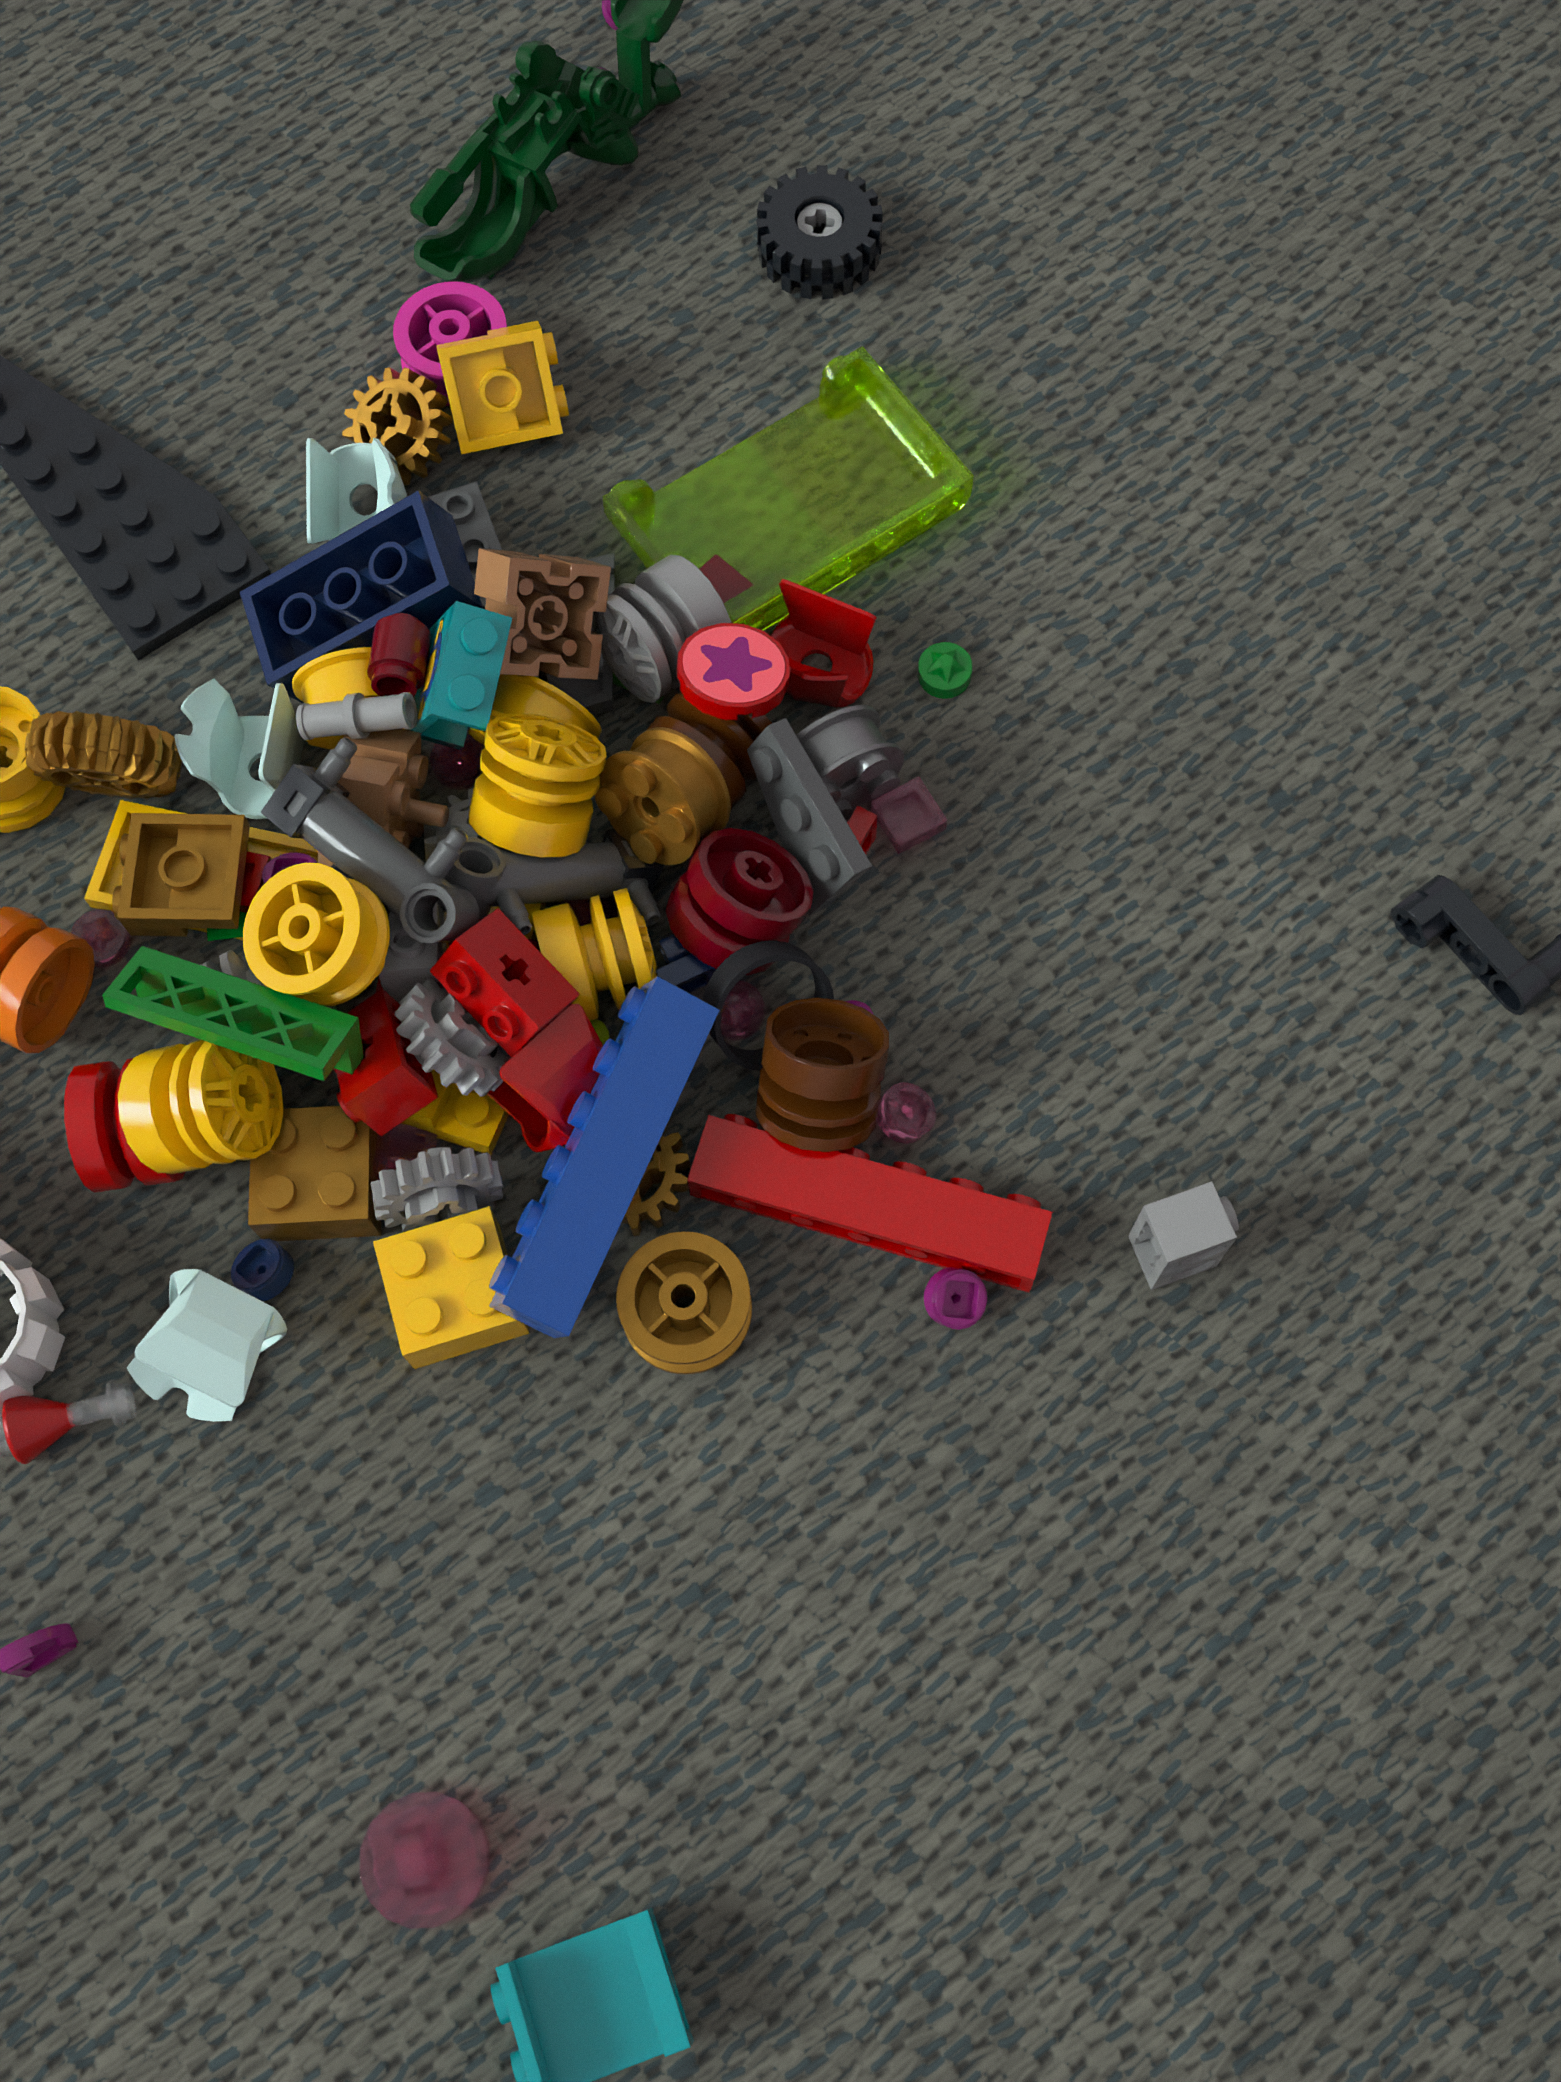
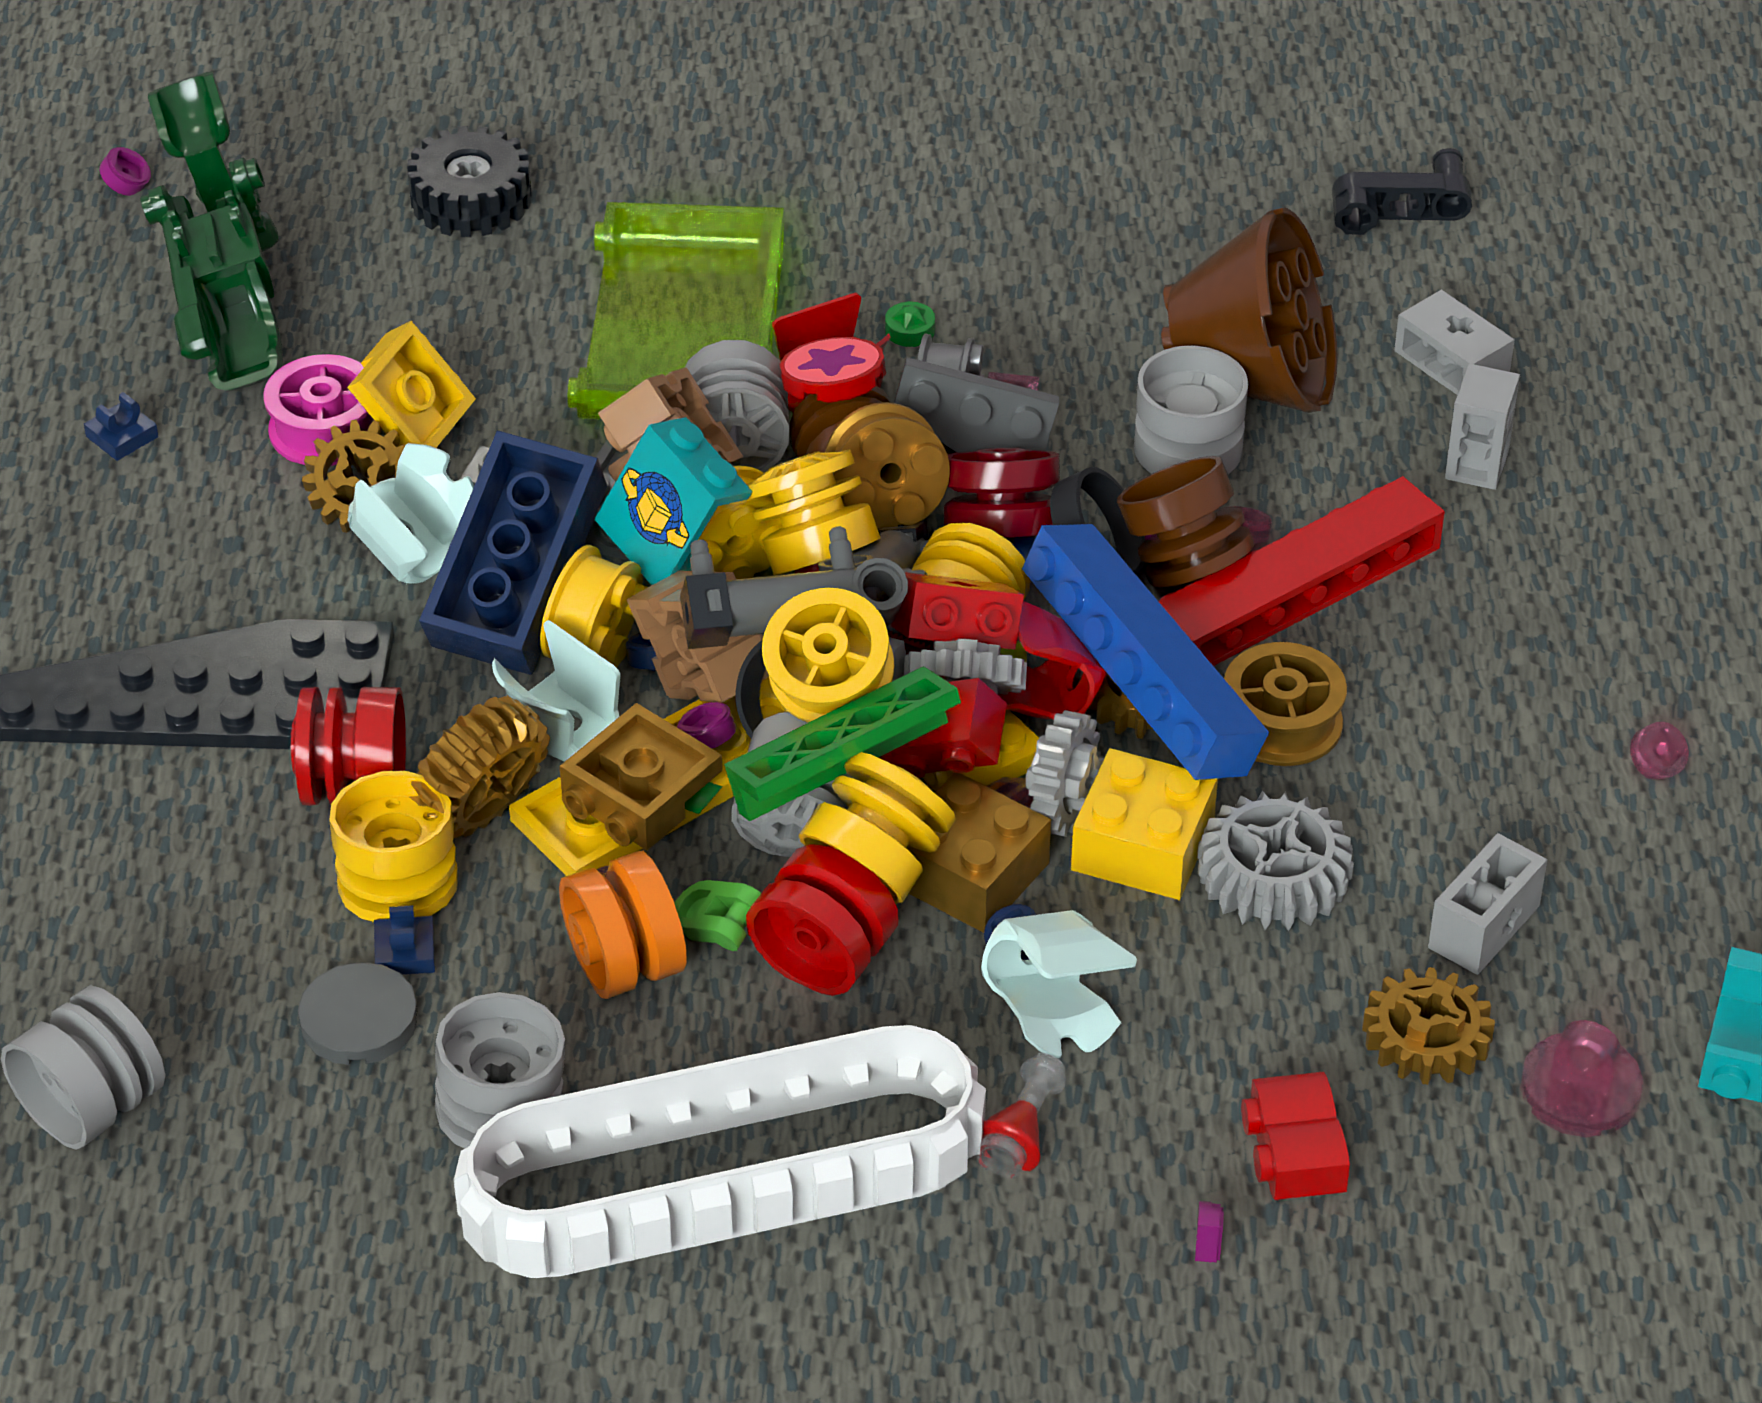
camera: 55 degrees left, 25 degrees down
(77, 646) = (344, 743): none -> red wheel
(99, 1037) = (716, 912): none -> bright green plate
(181, 1658) = (1297, 1136): none -> red brick
(341, 231) = (120, 428): none -> dark blue tile
(356, 716) = (640, 576): light grey pin -> none
(358, 1688) = (1428, 1025): none -> pearl gold gear
(398, 655) = (615, 528): dark red brick -> none
(465, 1424) = (1275, 860): none -> light grey gear
(554, 1646) = (1487, 903): none -> light grey brick
(896, 1667) = (1659, 751): none -> clear pink tile
(955, 1298) = (1412, 575): magenta tile -> none
(983, 977) = (1190, 408): none -> light grey wheel
(1147, 958) = (1263, 310): none -> reddish brown cone
(1284, 1156) = (1447, 336): none -> light grey brick

